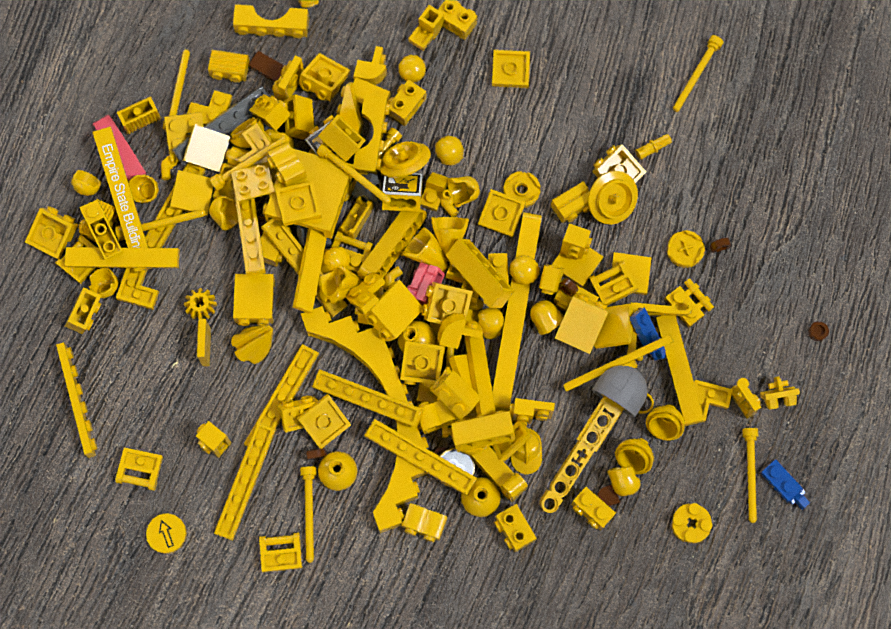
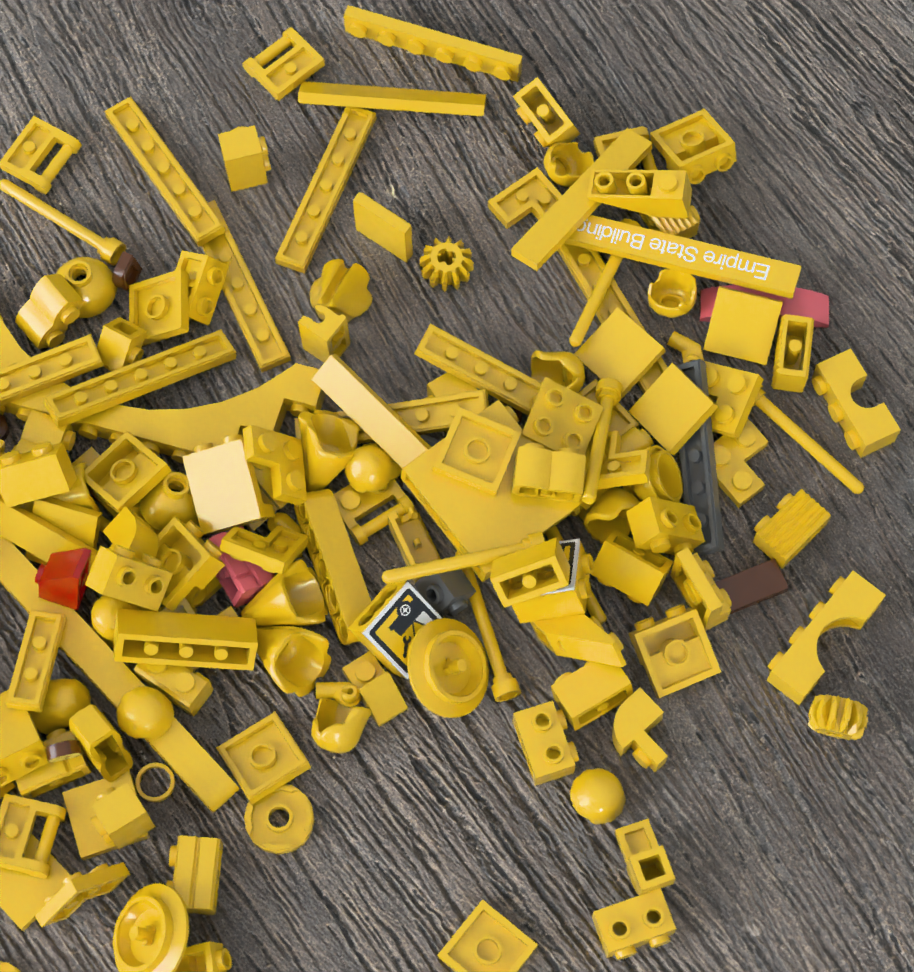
camera: 130 degrees right, 5 degrees down
(85, 183) = (737, 227): yellow hair -> none
(123, 397) = (392, 98): none -> yellow tile
(139, 146) = (742, 325): none -> yellow tile
(155, 64) = (864, 427): none -> yellow arch
(166, 533) = (177, 46): yellow tile -> none
(196, 396) = (325, 189): none -> yellow tile
(253, 299) = (394, 330): yellow panel -> none
(282, 324) = (324, 337): none -> yellow hinge
(356, 422) = (120, 343): none -> yellow brick
(365, 469) = (49, 311): none -> yellow brick
(375, 111) = (549, 667): yellow arch -> none
(412, 268) = (271, 552): none -> yellow plate
(449, 150) = (422, 755): yellow hair -> none
(474, 308) = (129, 578): none -> yellow brick
(491, 347) = (64, 577): none -> red slope
(538, 333) = (35, 661): none -> yellow tile
(543, 261) = (147, 767): none -> yellow piece
(619, 237) = (78, 889): none -> yellow plate

